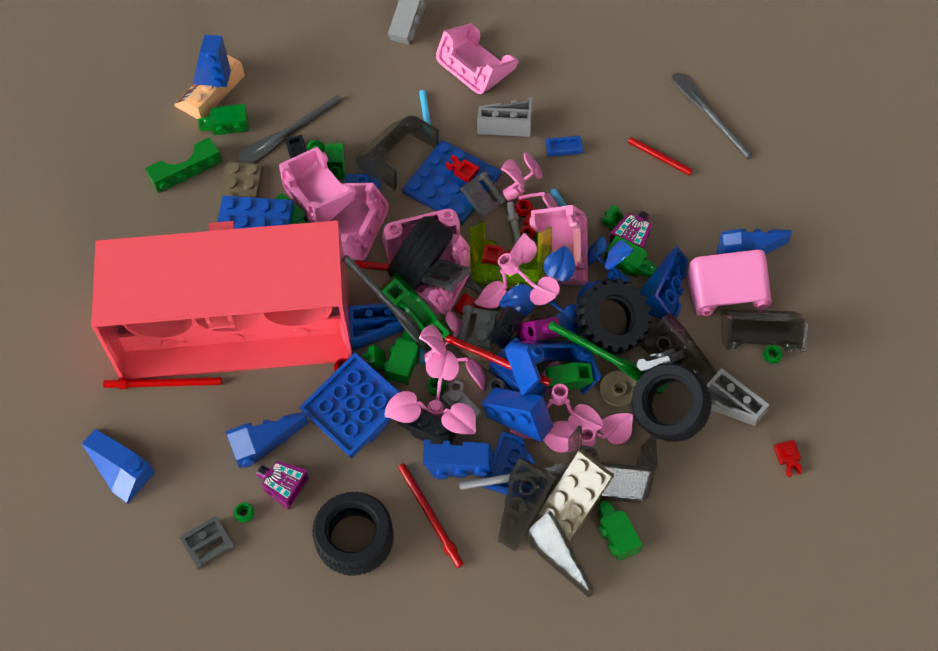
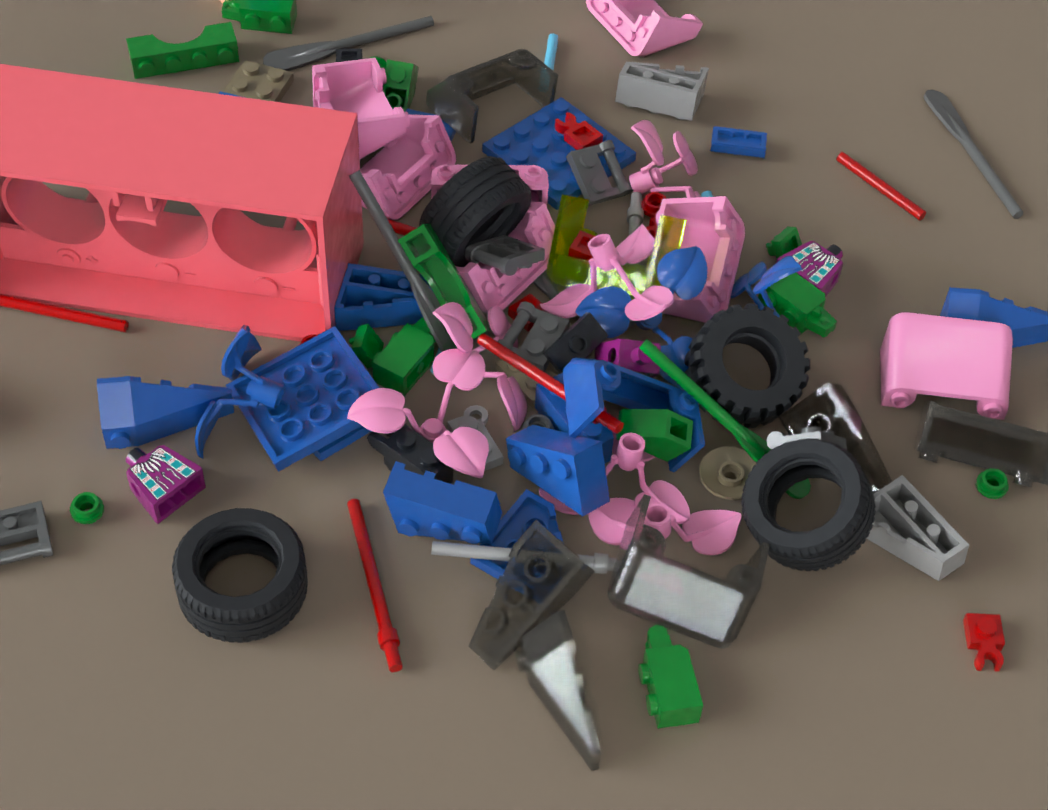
camera: 10 degrees right, 10 degrees down
(325, 409) = (259, 388): none -> blue plant
(432, 383) = (453, 408): green plate -> none
(577, 492) = (617, 597): plate -> none
(665, 285) = (844, 350): blue wedge -> none

